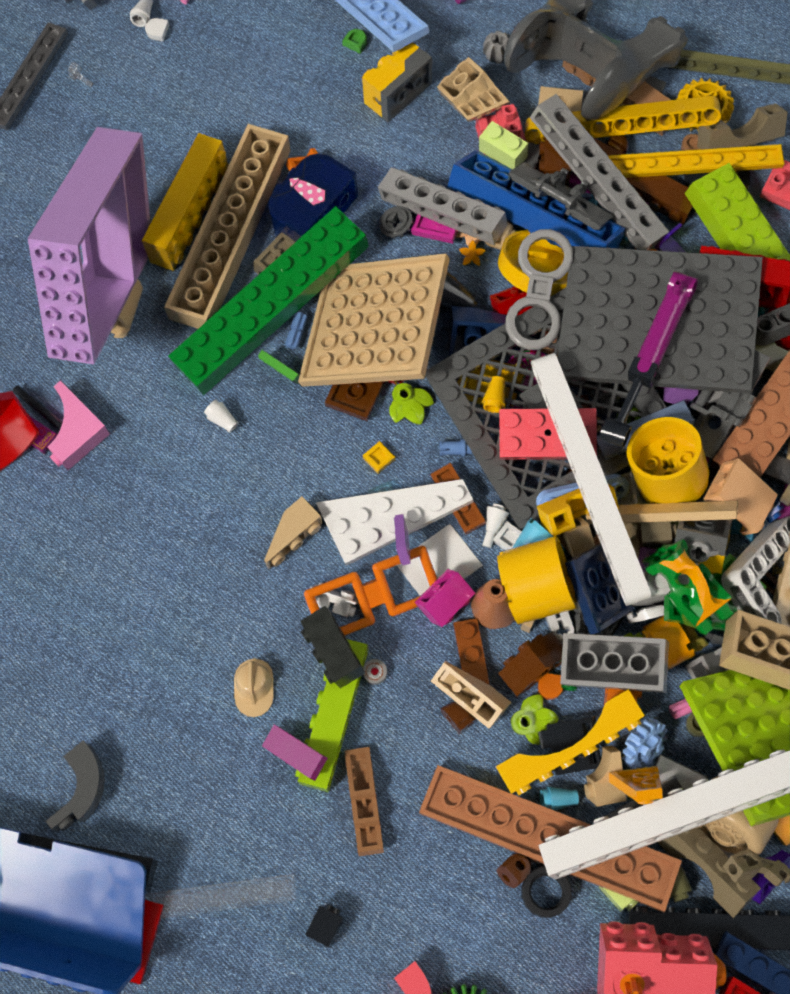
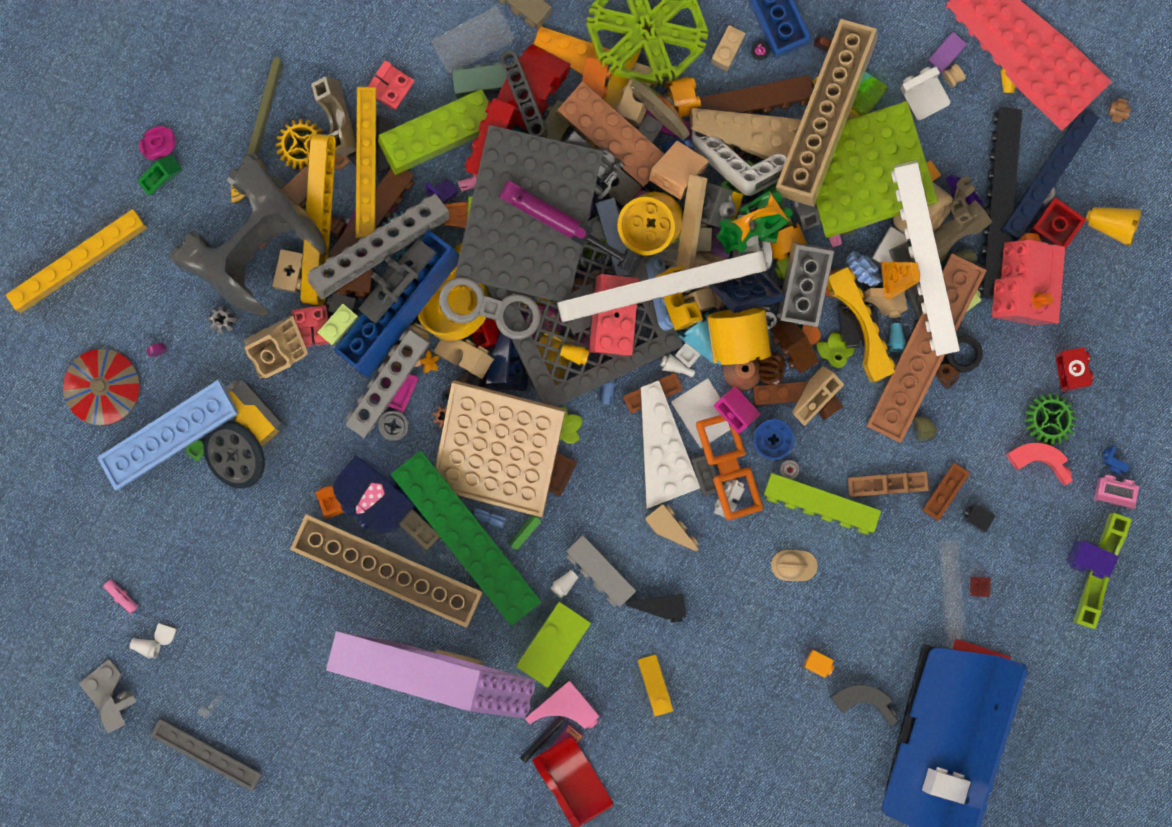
camera: 85 degrees left, 15 degrees up
(99, 528) = (655, 685): none -> yellow slope
(128, 724) = (819, 664): none -> light orange brick
(149, 408) = (553, 644): none -> lime brick
(185, 202) = (361, 608): yellow brick -> none
(195, 529) = (666, 607): none -> black slope
(233, 934) = (980, 586): none -> clear red plate
(237, 454) = (601, 571): none -> light grey brick
(294, 752) = (851, 534): magenta tile -> none
(331, 647) = (775, 500): pearl dark grey brick -> none
(350, 64) = (246, 441): none -> dark grey wedge
(358, 878) = (945, 491): none -> dark orange plate
(361, 565) = (705, 474): none -> dark grey plate
(378, 457) = (609, 455): yellow tile -> none
(402, 539) = (692, 439): medium lavender tile -> none
(408, 630) = (782, 431): none -> blue wheel
(441, 844) = (924, 428): none -> olive piece
(481, 283) = (473, 359): none -> tan arch
(501, 637) = (772, 369): none -> reddish brown gear

